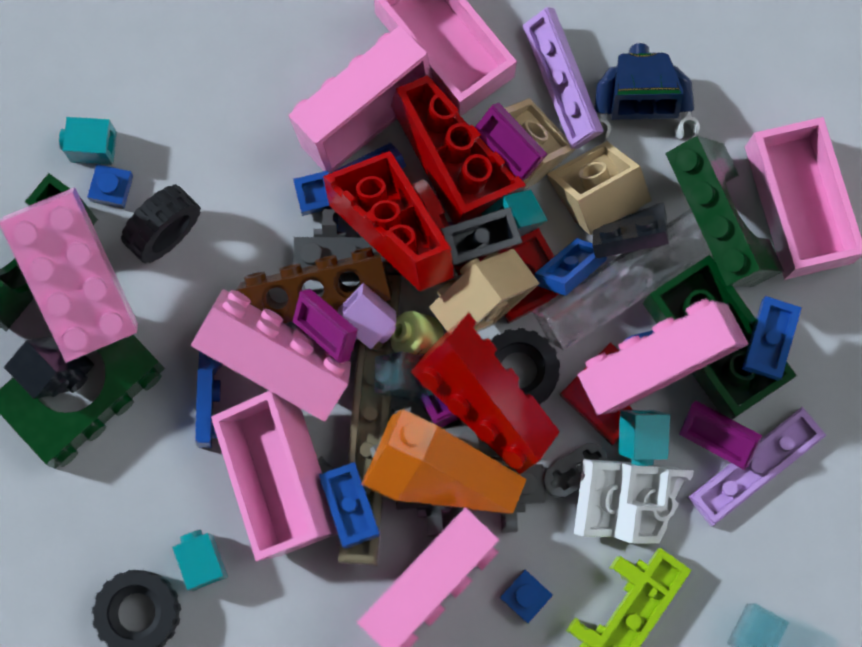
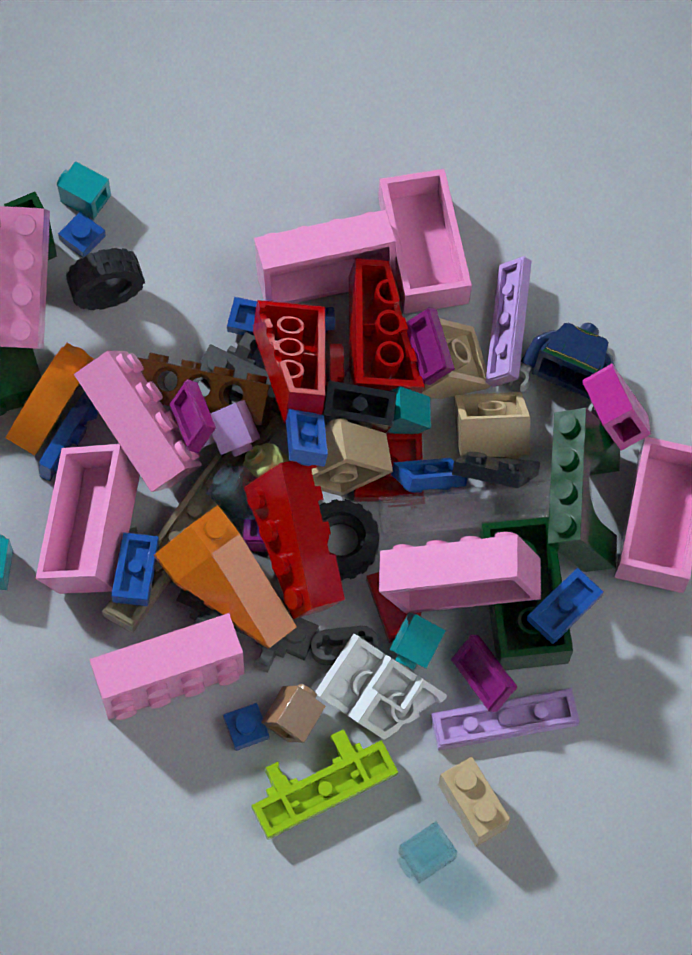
camera: 25 degrees right, 10 degrees down
(172, 369) = (48, 399): none -> orange arch
(455, 299) = (306, 438): none -> blue plate
(567, 563) = (294, 713): none -> medium nougat brick
(715, 117) = (617, 407): none -> dark pink slope
(775, 563) = (473, 801): none -> tan brick

